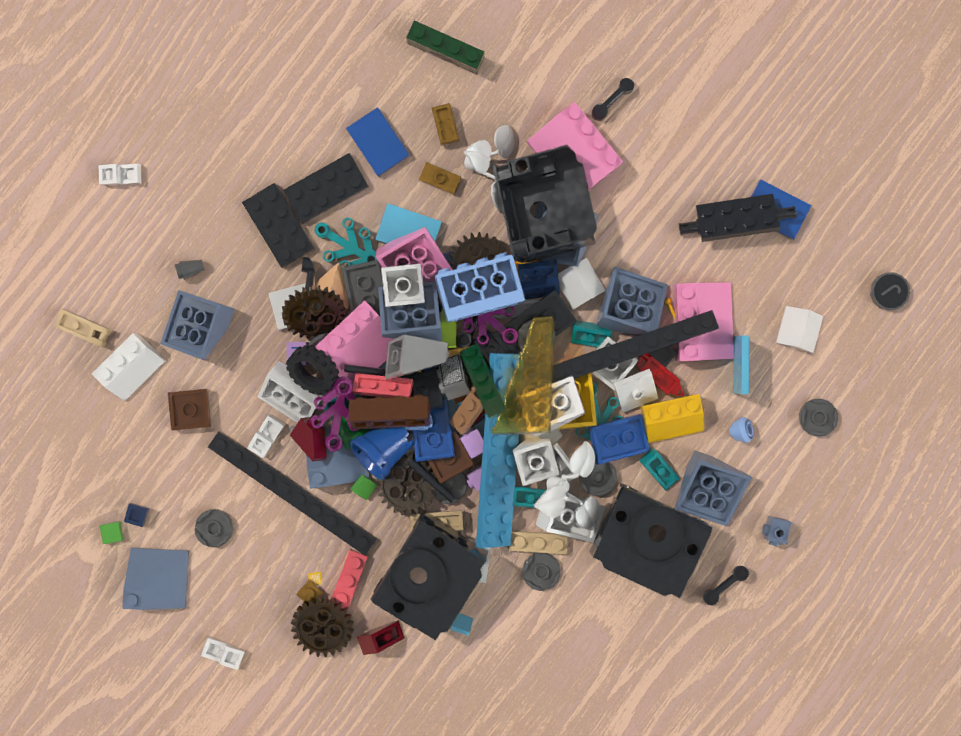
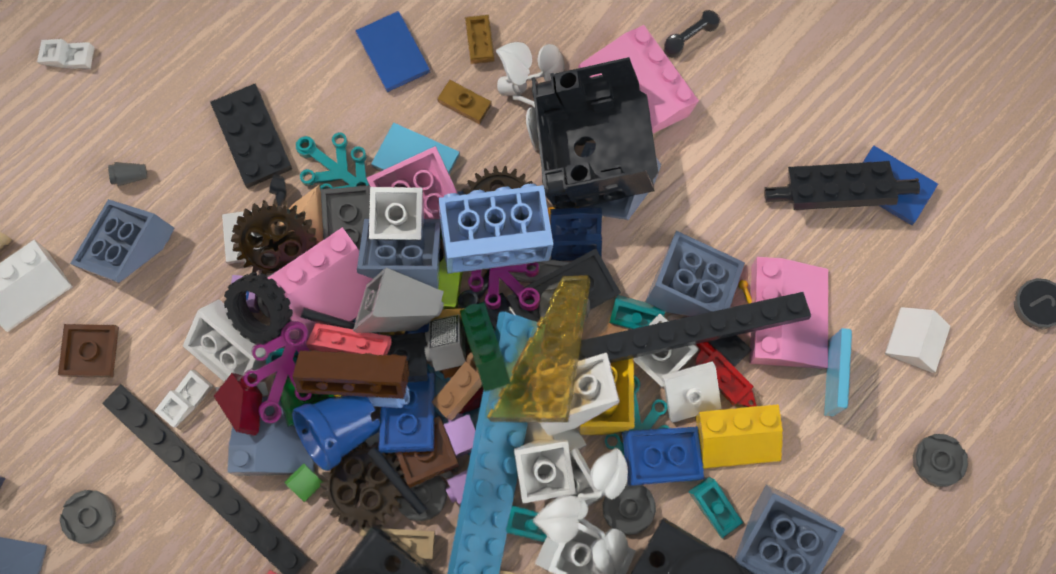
camera: 10 degrees right, 15 degrees down
(325, 188) = (318, 98): black plate -> none
(580, 284) = (628, 248): white slope -> none
(742, 430) = (834, 464): light blue cone -> none

